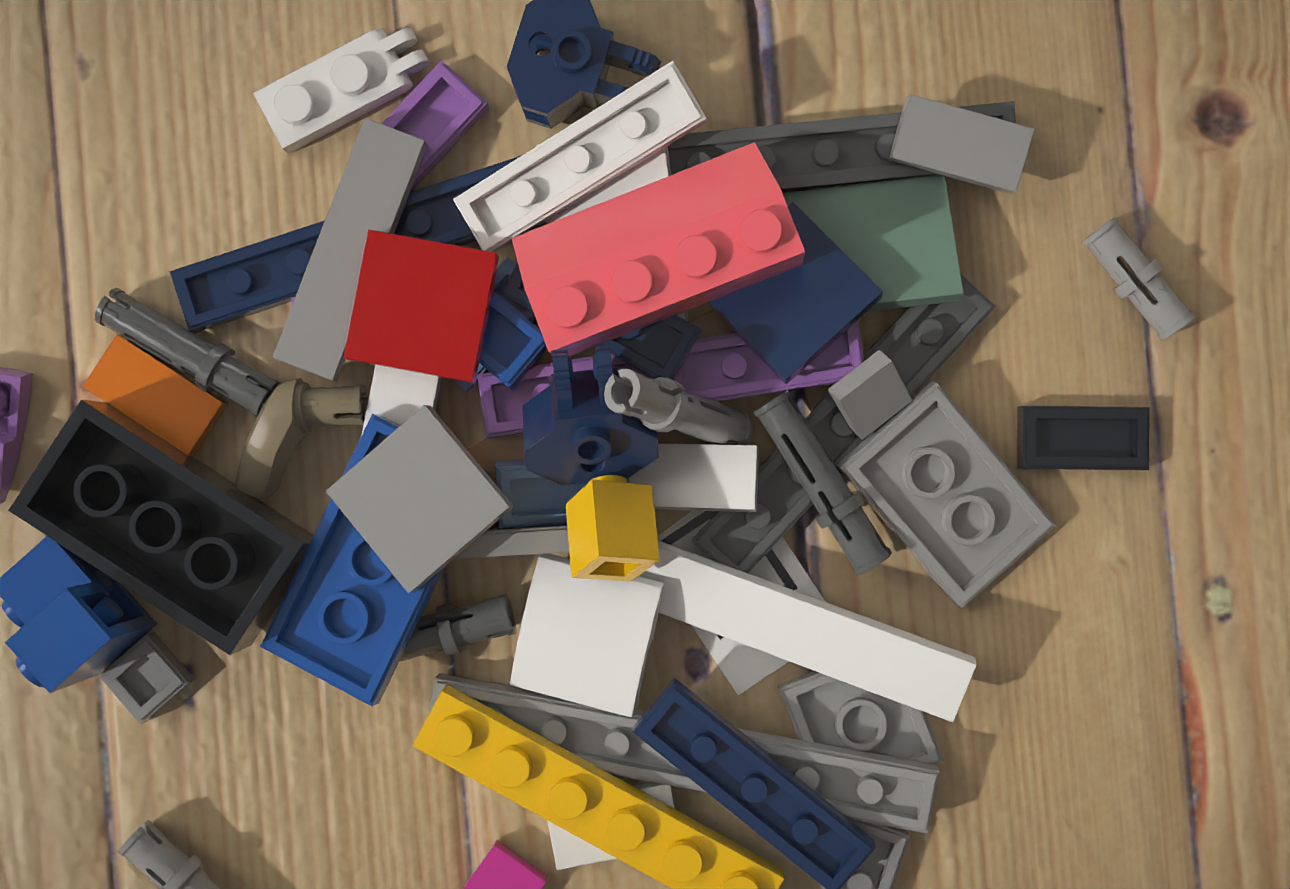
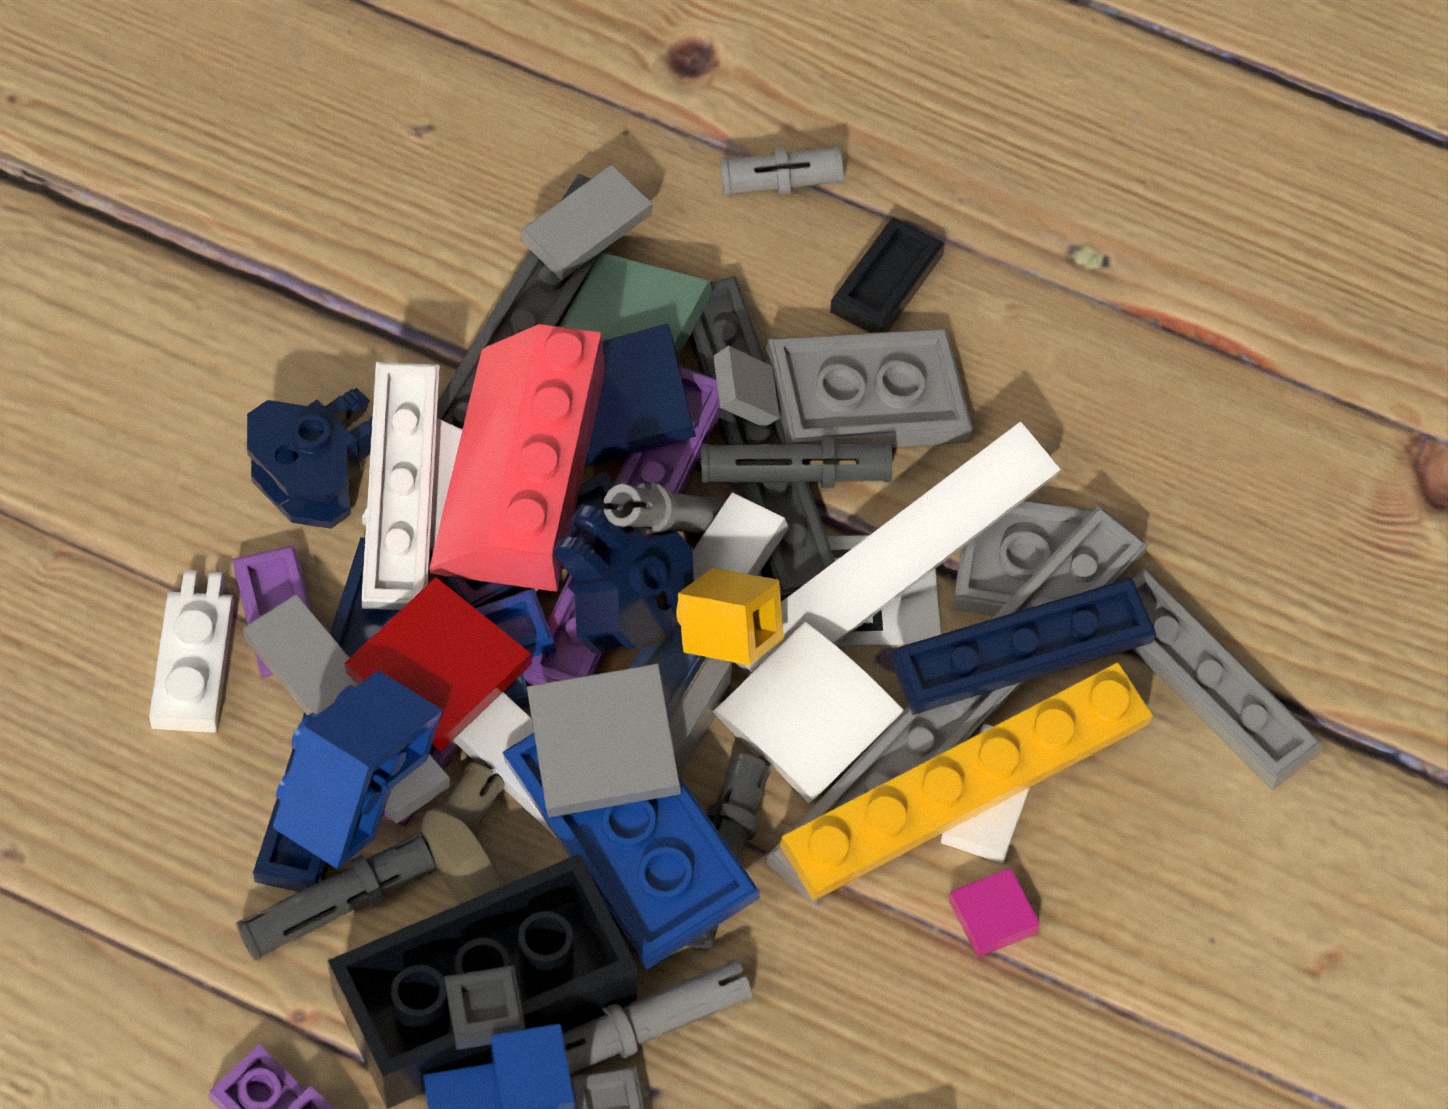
camera: 65 degrees left, 30 degrees down
(108, 558) = (483, 1005): none -> dark grey tile
(155, 395) = (309, 953): orange tile -> none
(238, 673) = (625, 1028): none -> light grey pin
(266, 303) = (349, 764): none -> blue brick

